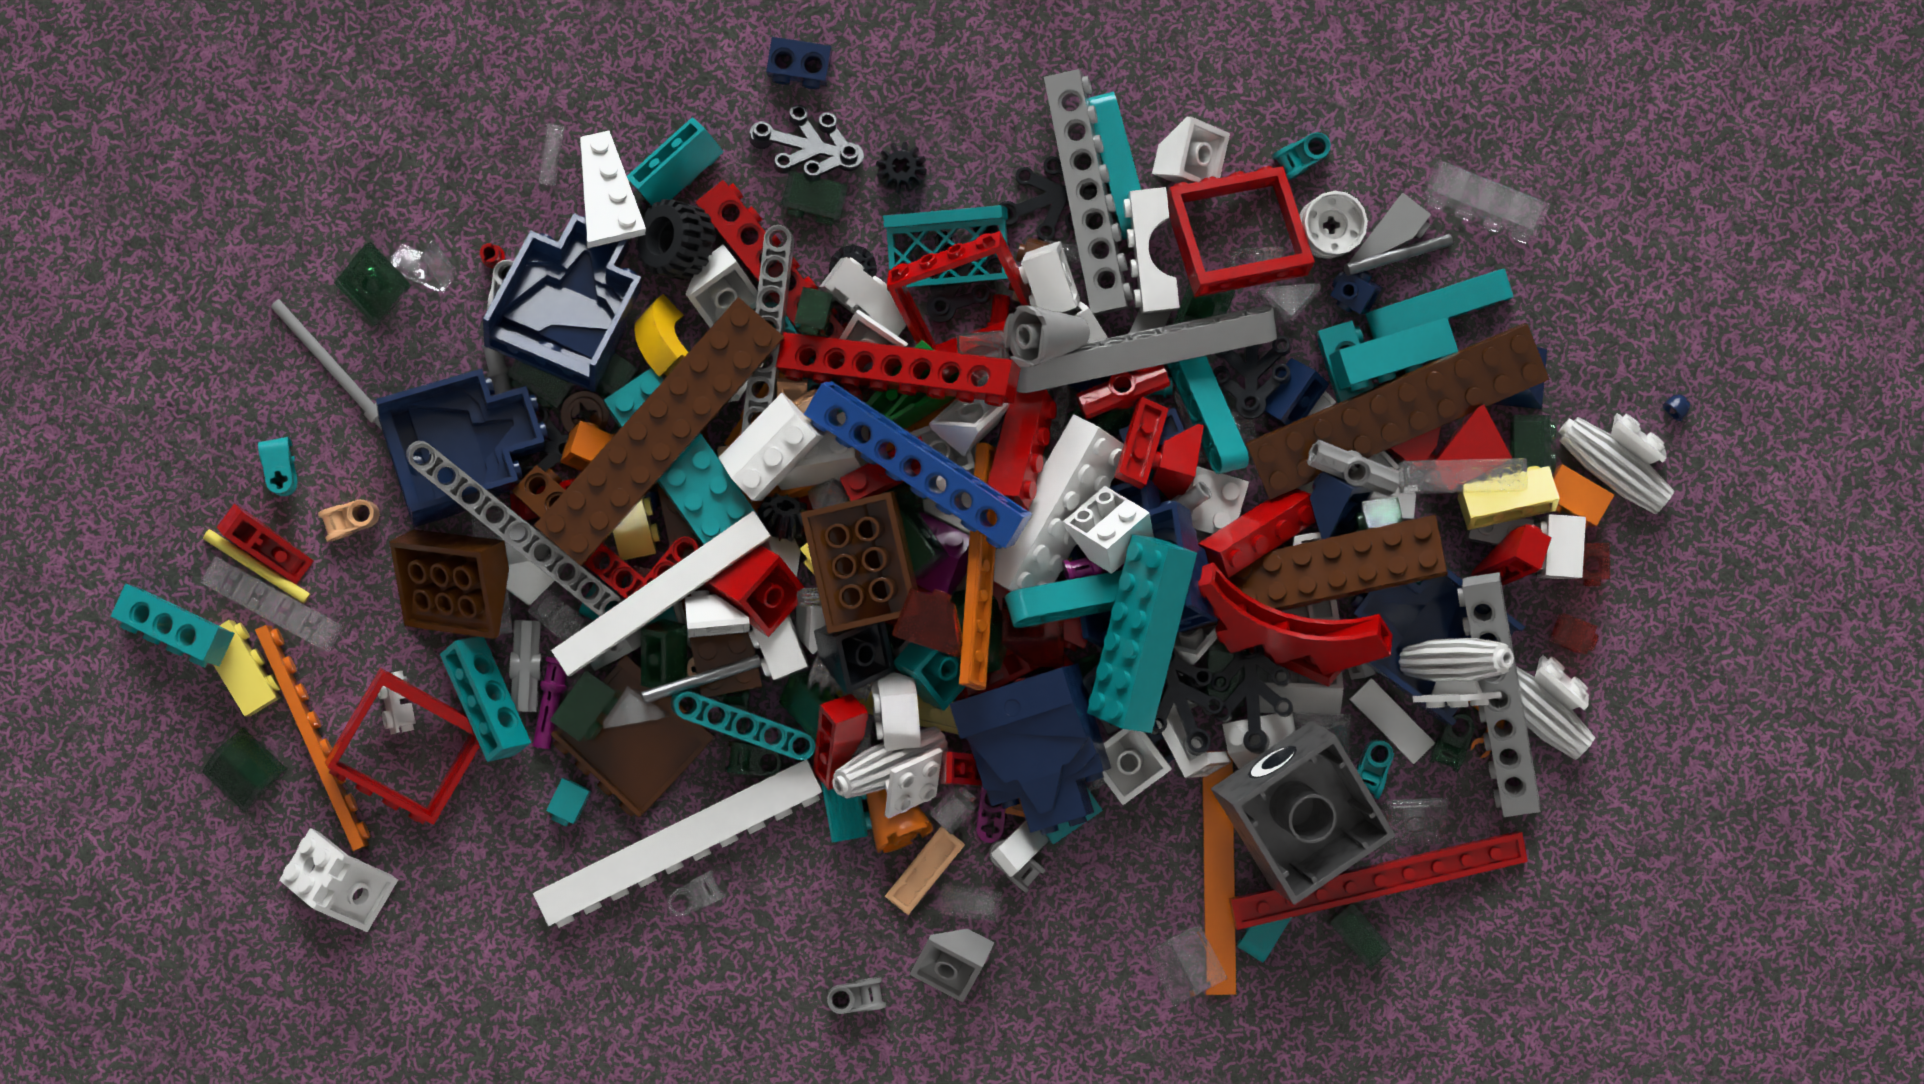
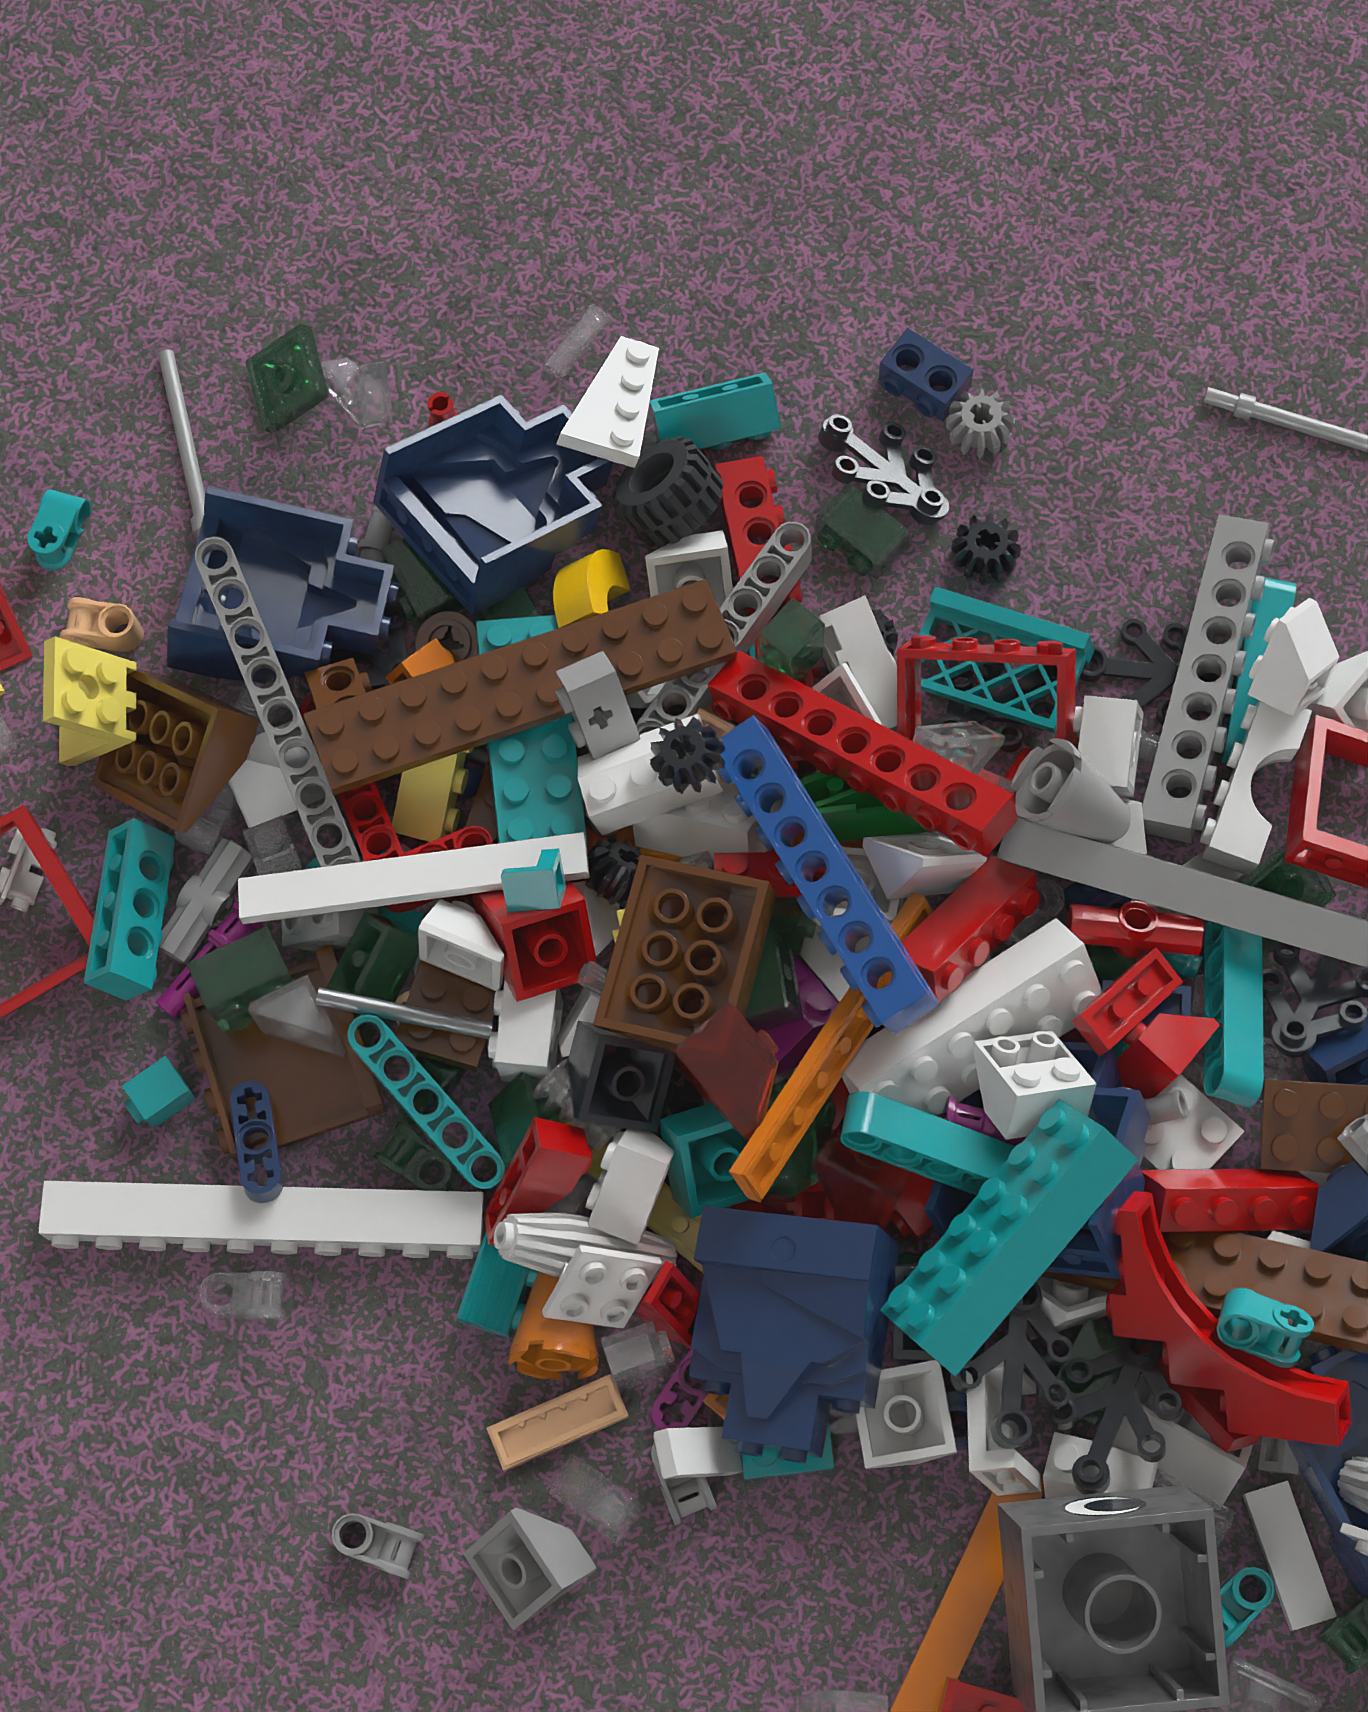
camera: 30 degrees right, 15 degrees down
(396, 588) = (86, 699): none -> light yellow bracket
(629, 789) = (269, 1154): none -> dark blue beam
(717, 423) = (597, 705): none -> light grey brick
(746, 566) = (535, 886): none -> teal panel
(802, 424) = (694, 768): none -> black gear
(843, 83) = (982, 435): none -> light grey gear
(959, 332) = (961, 743): none -> clear slope
(1141, 160) = (1295, 661): none -> white slope
(1312, 606) = (1264, 1326): none -> teal piece

